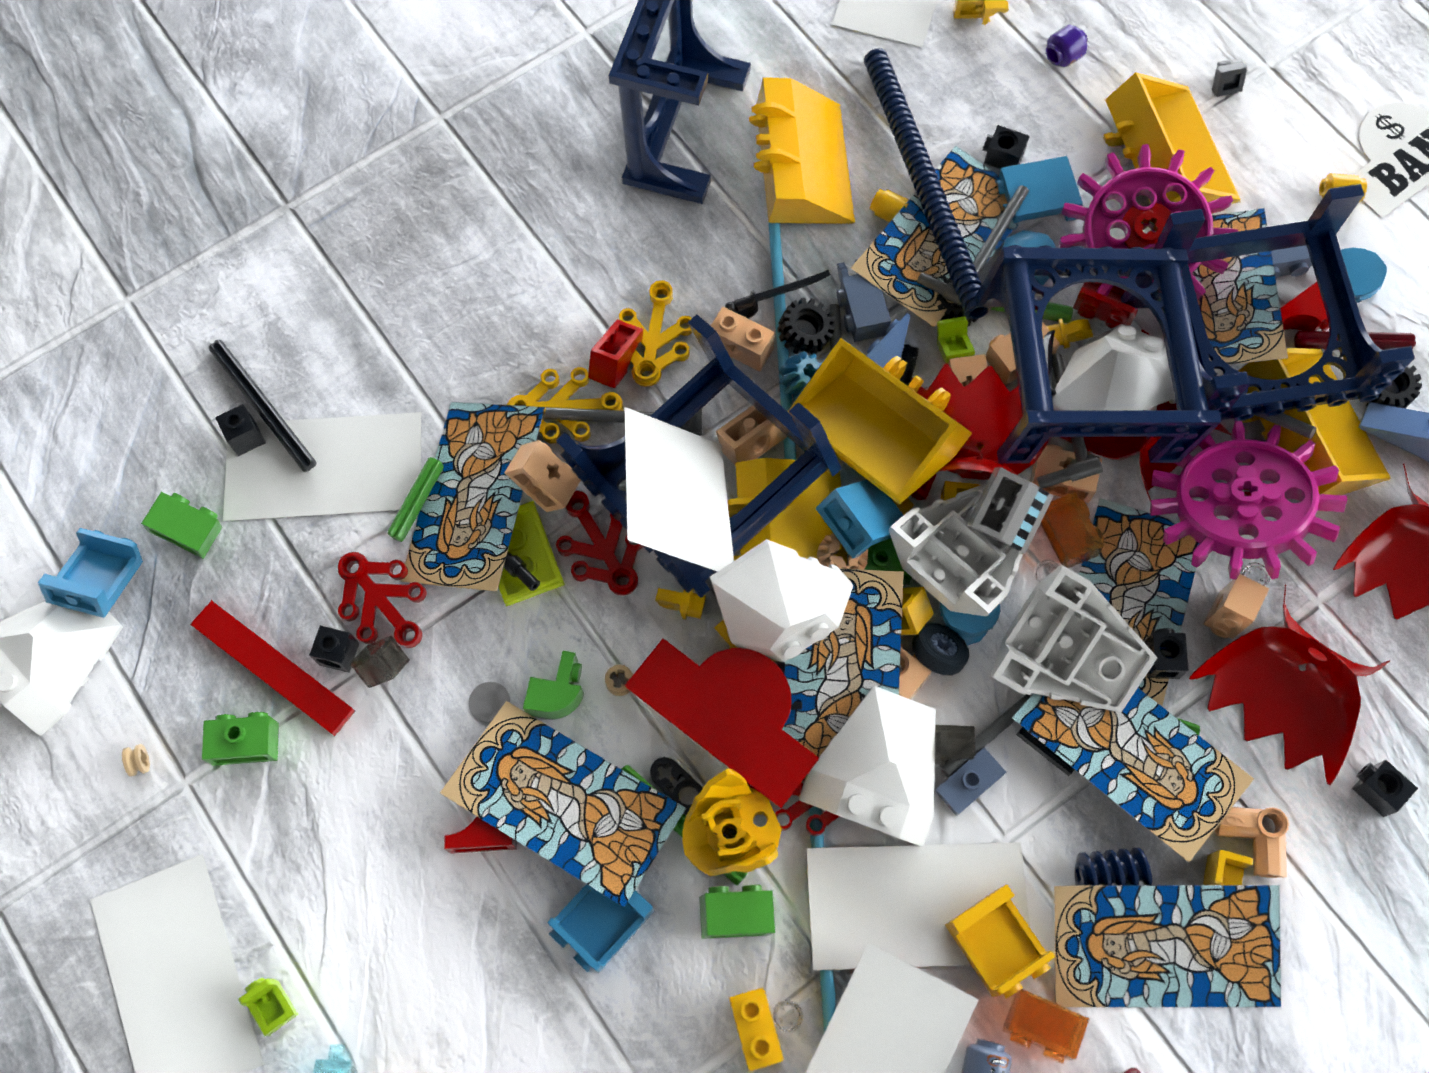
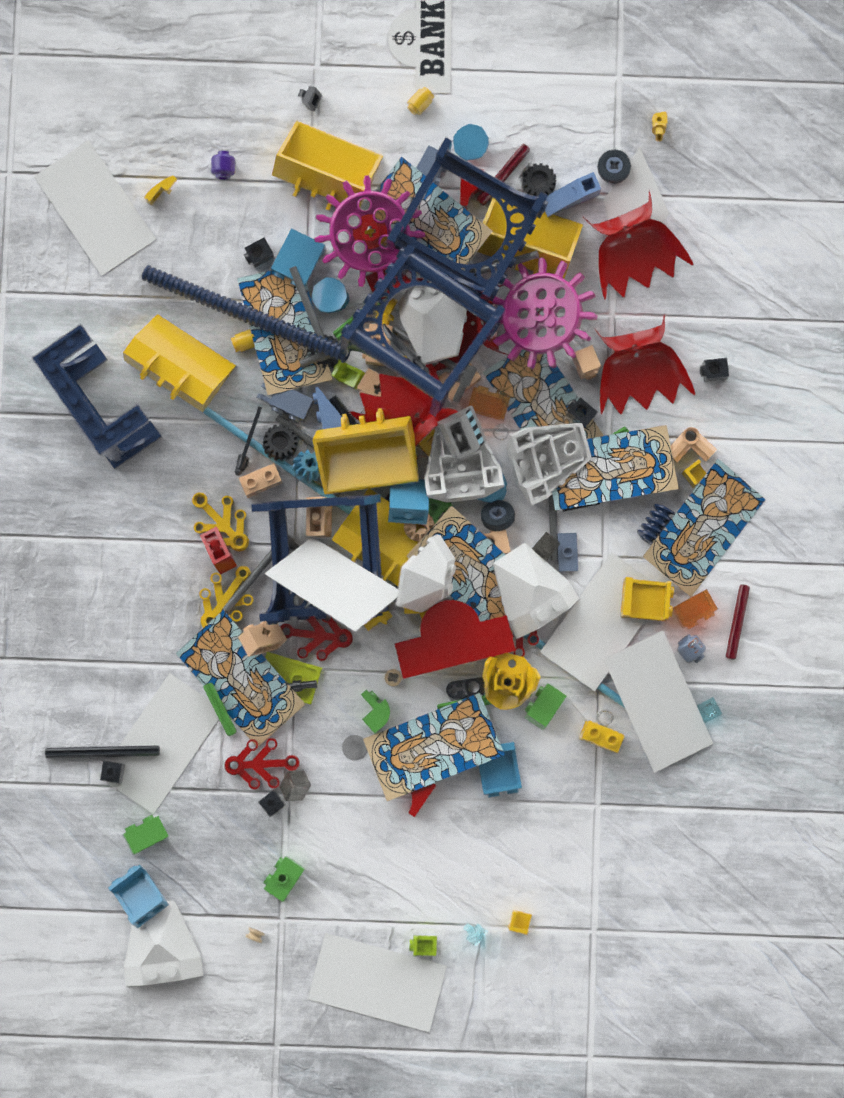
camera: 55 degrees left, 15 degrees up
(273, 668) = (255, 840): red tile -> none
(915, 610) = (471, 512): yellow panel -> none

